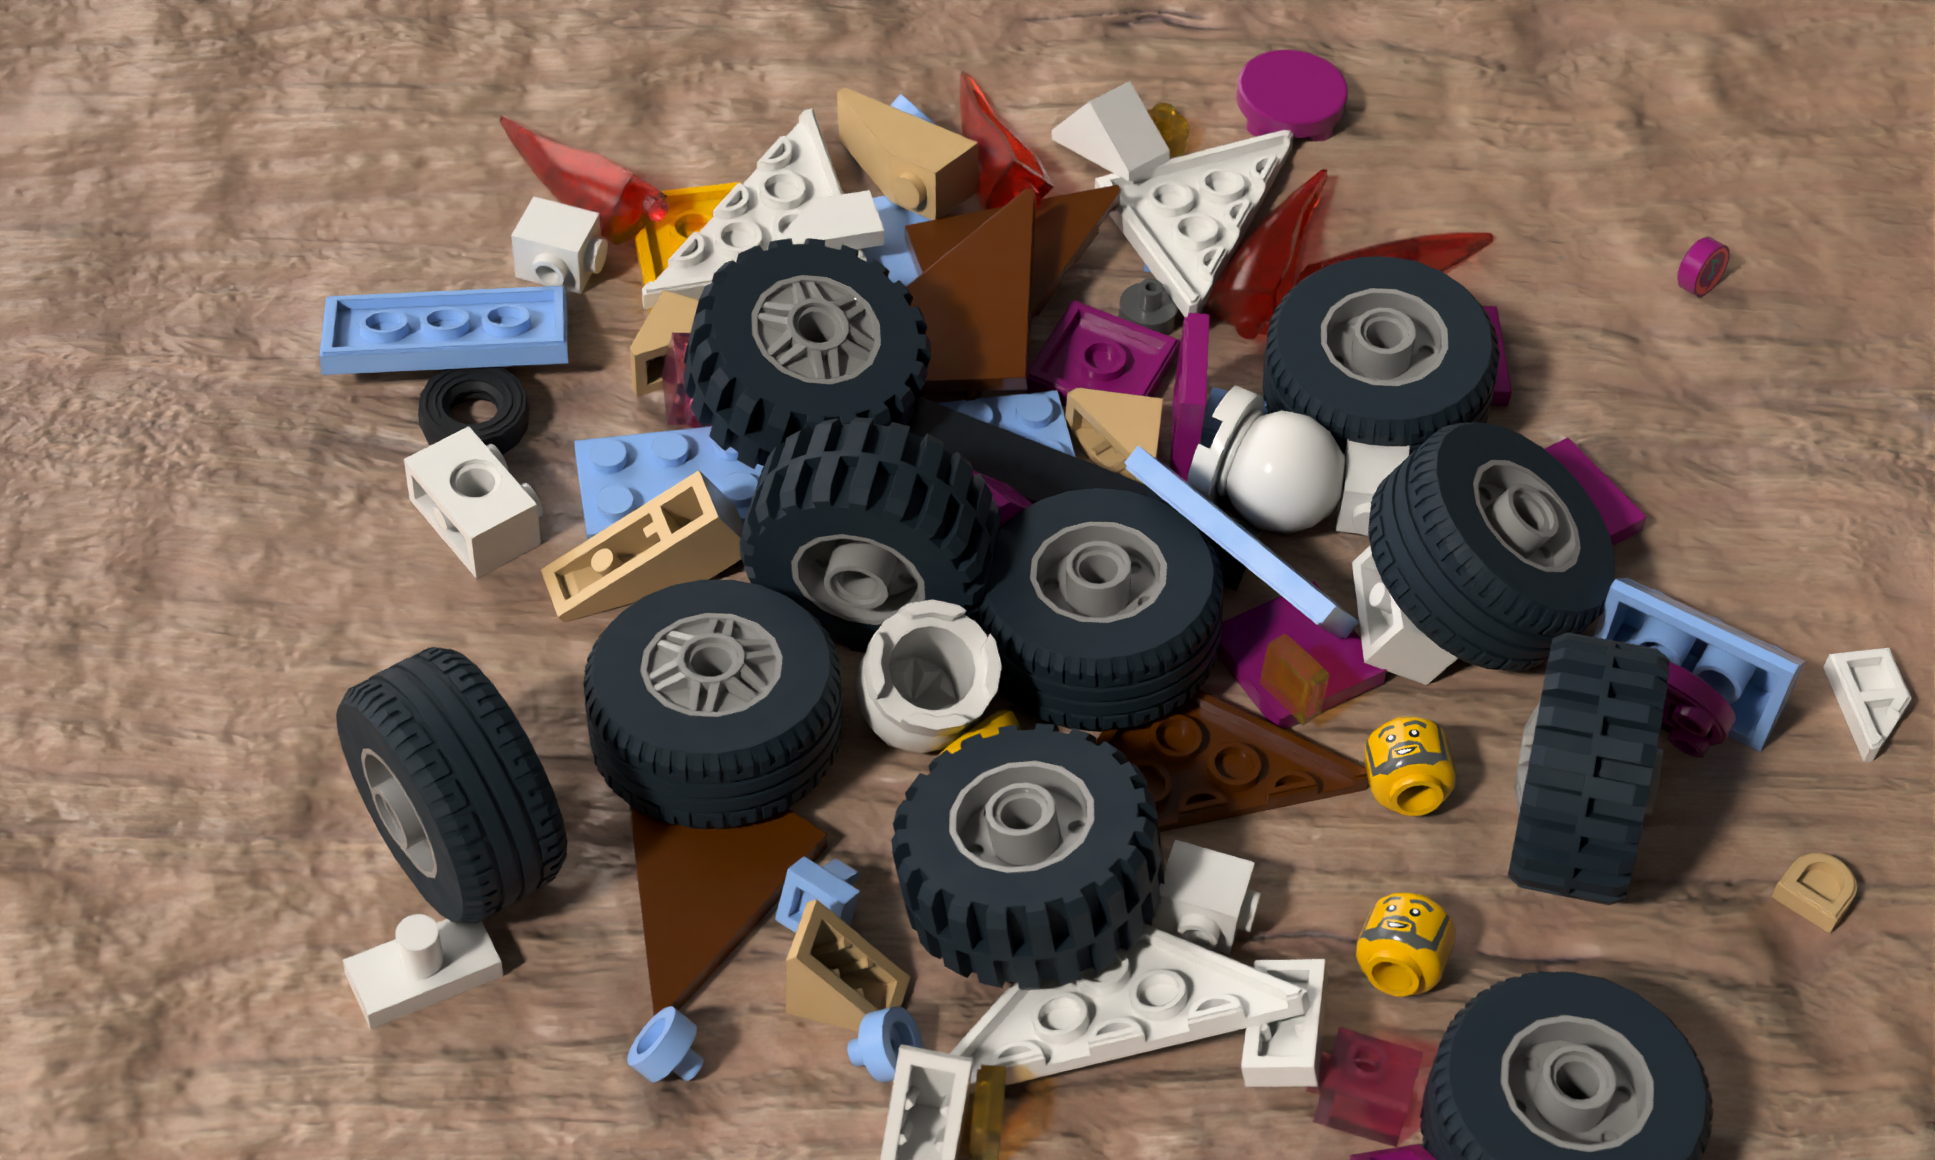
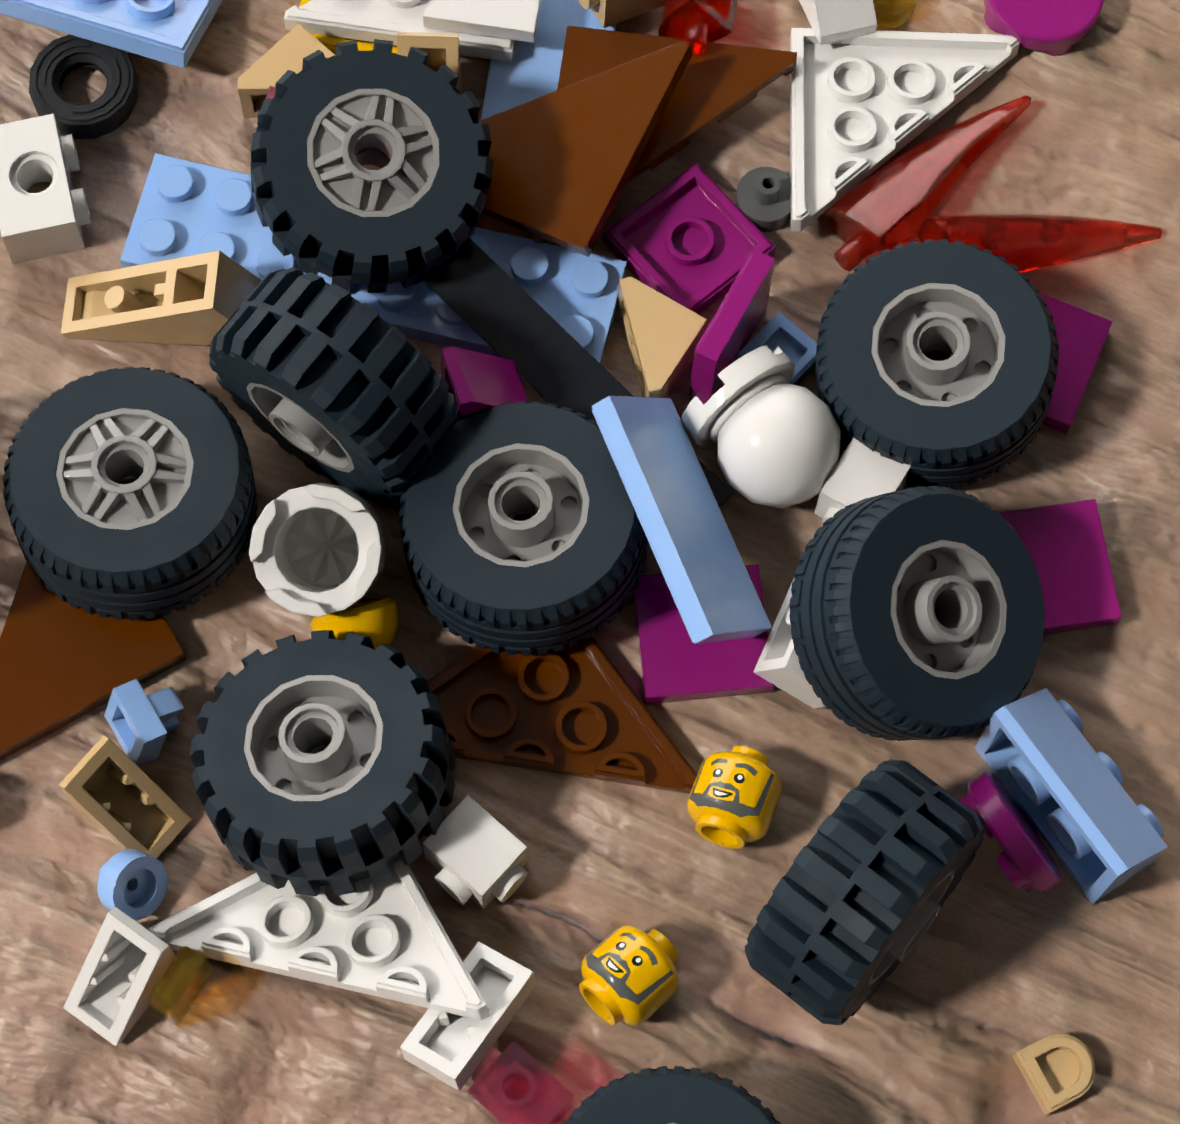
camera: 25 degrees right, 20 degrees up
(1294, 678) = (669, 670): clear yellow tile -> none

